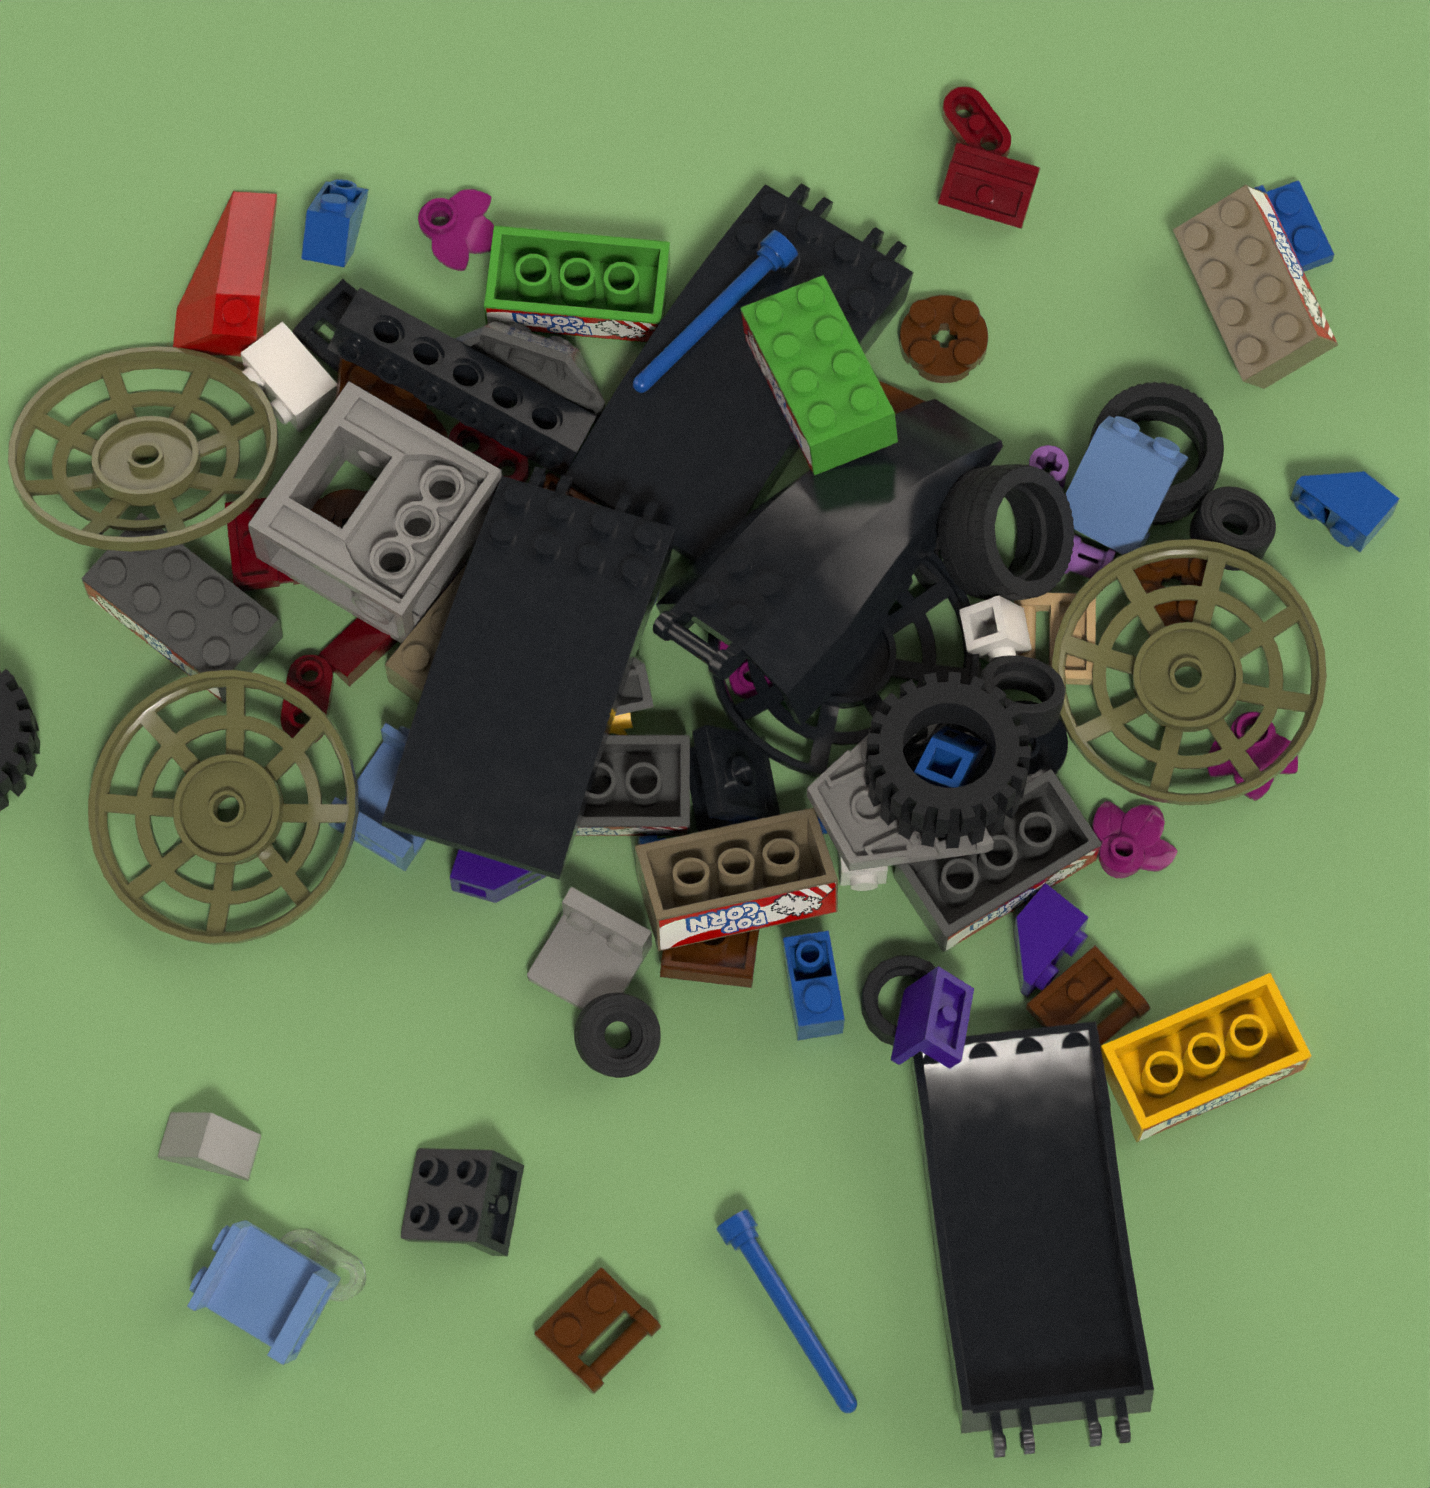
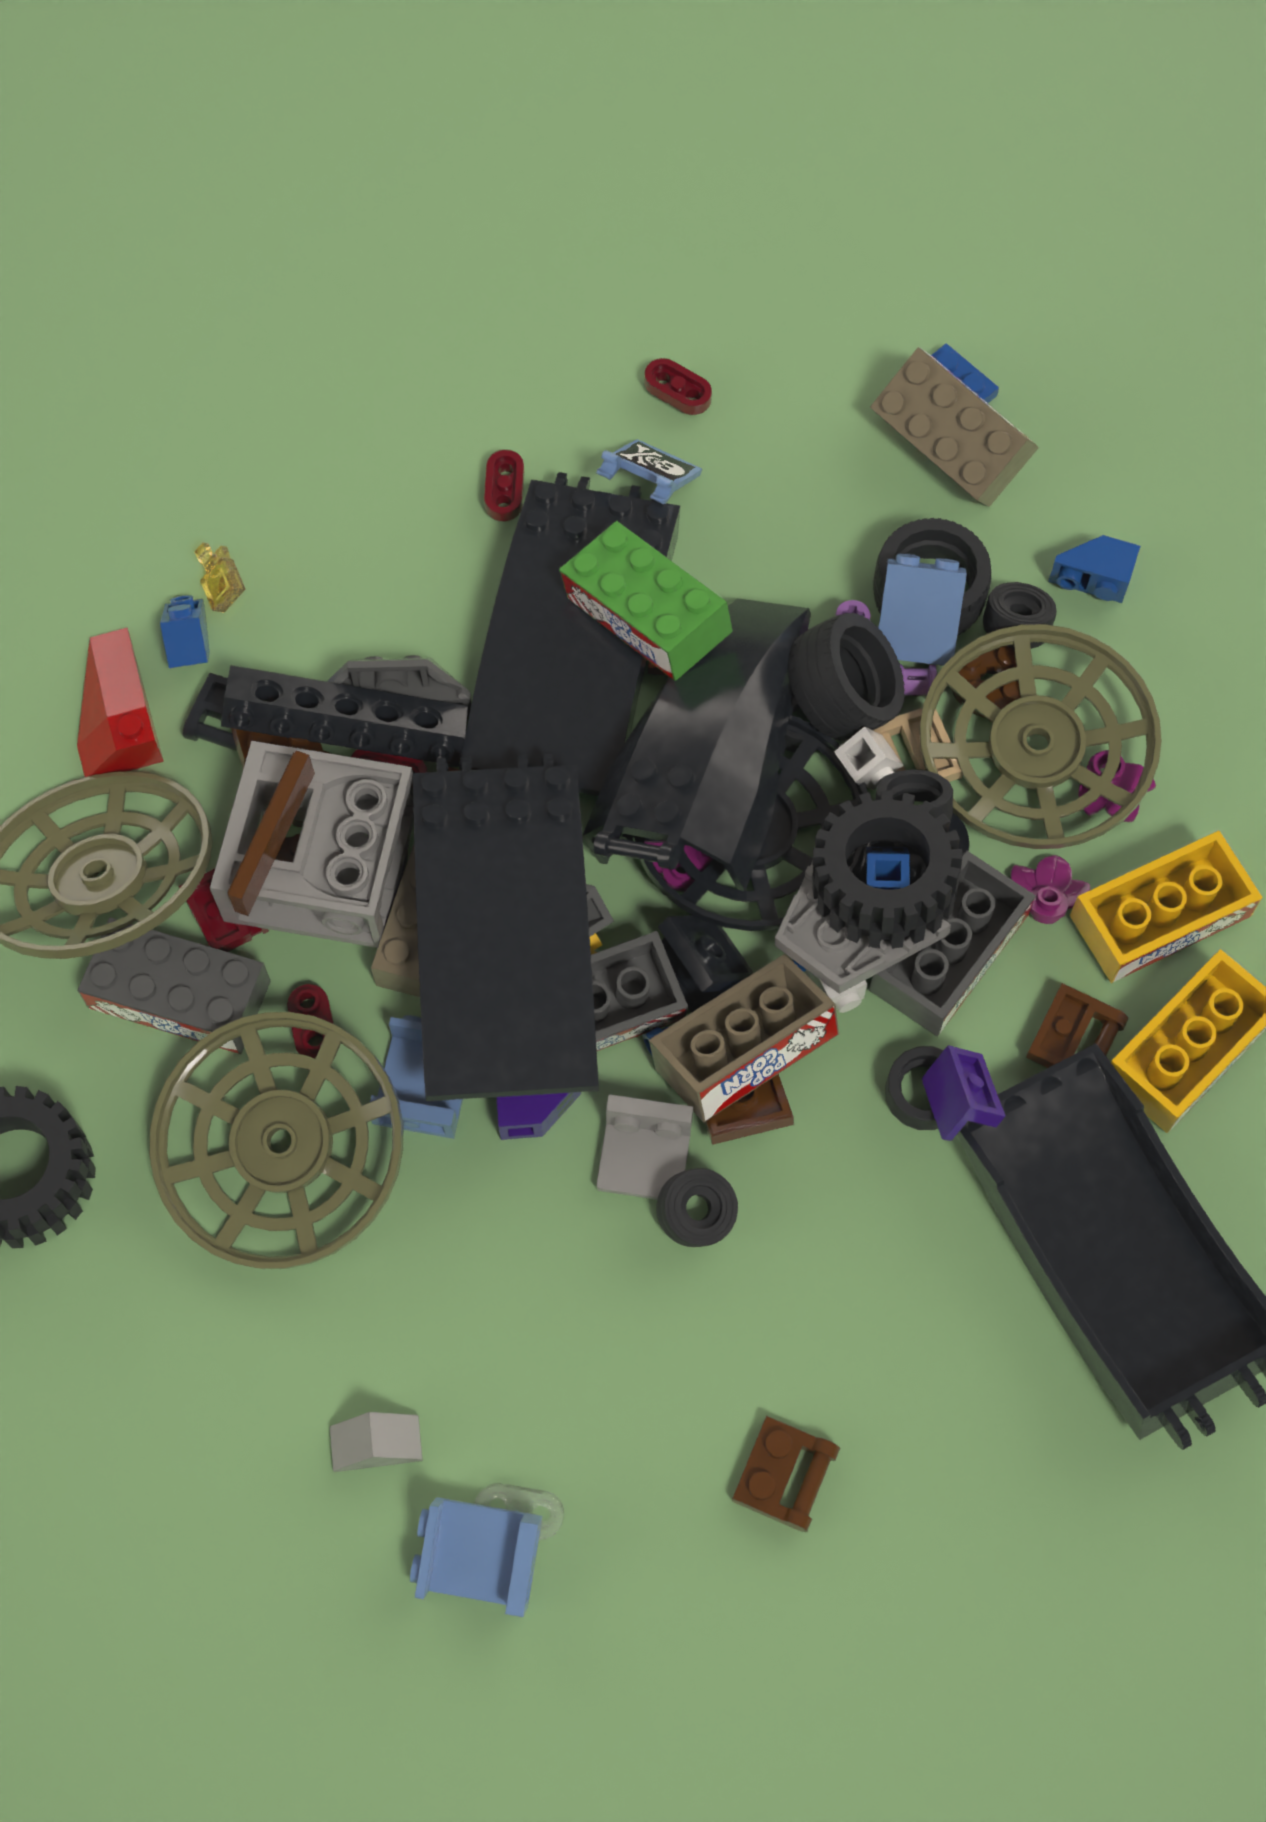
camera: 20 degrees left, 5 degrees down
(289, 377) = (196, 764): white brick -> none
(329, 490) = (271, 833): none -> reddish brown tile
(356, 650) = (339, 968): dark red slope -> none
(393, 178) = (222, 579): none -> clear yellow plate
(463, 1199) = (620, 1403): black bracket -> none
(465, 230) = (296, 602): magenta plate -> none
(577, 283) = (410, 607): bright green brick -> none
(736, 177) = (504, 488): none -> dark red plate
(741, 1234) = (875, 1340): blue piece -> none
(774, 253) = (565, 522): blue piece -> none
(813, 985) = (846, 1103): blue slope -> none
(906, 211) = (651, 464): none -> flag
(951, 315) = (726, 534): reddish brown plate -> none
(989, 185) = (708, 425): dark red plate -> none
(1043, 934) = (1015, 990): dark purple slope -> none
(1240, 905) = (1165, 906): none -> yellow brick

